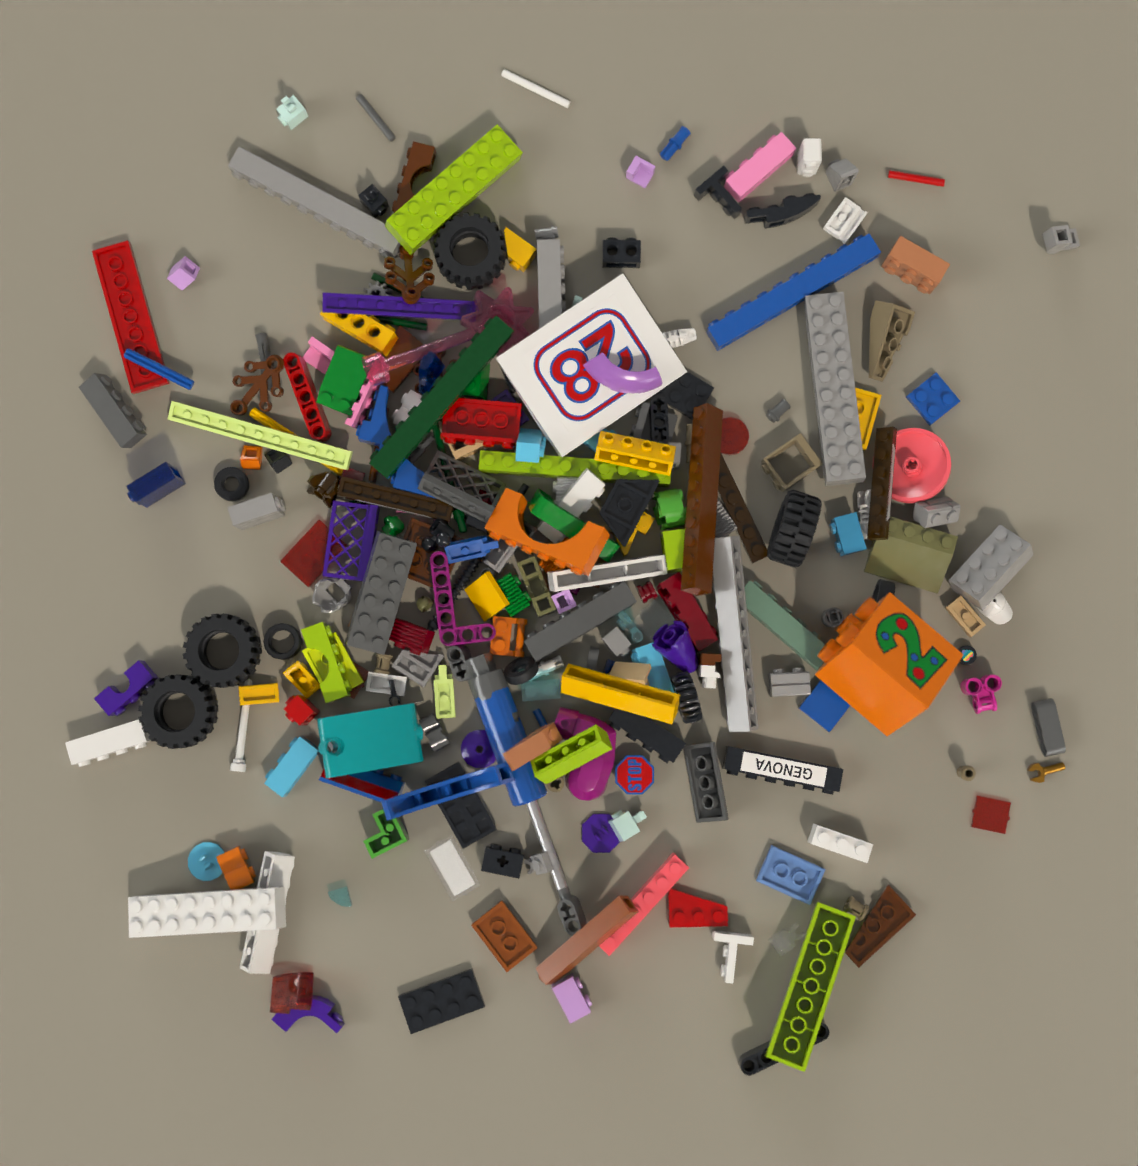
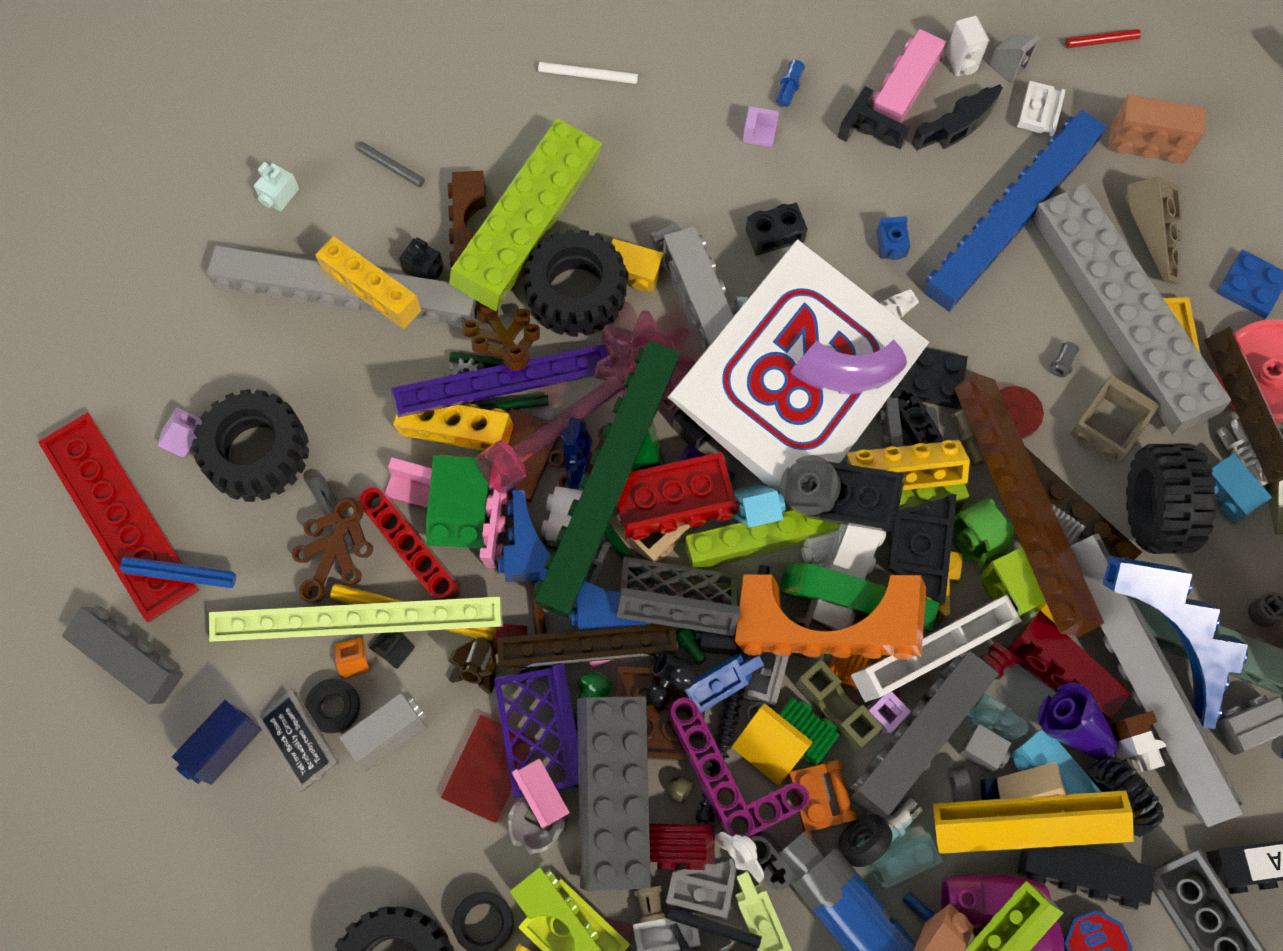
camera: 20 degrees left, 15 degrees down
(204, 498) = (297, 740): none -> piece
(212, 278) = (232, 418): none -> black tyre
(331, 209) = (368, 282): none -> yellow brick
(337, 579) = (541, 793): none -> bright pink panel
(414, 689) = (714, 927): none -> black bar
(443, 653) = (743, 852): none -> white plate
(571, 454) = (822, 497): none -> dark grey plate
(590, 462) = (866, 498): none -> black tile
(701, 279) = (893, 238): none -> blue brick
(757, 586) = (1194, 621): none -> arch

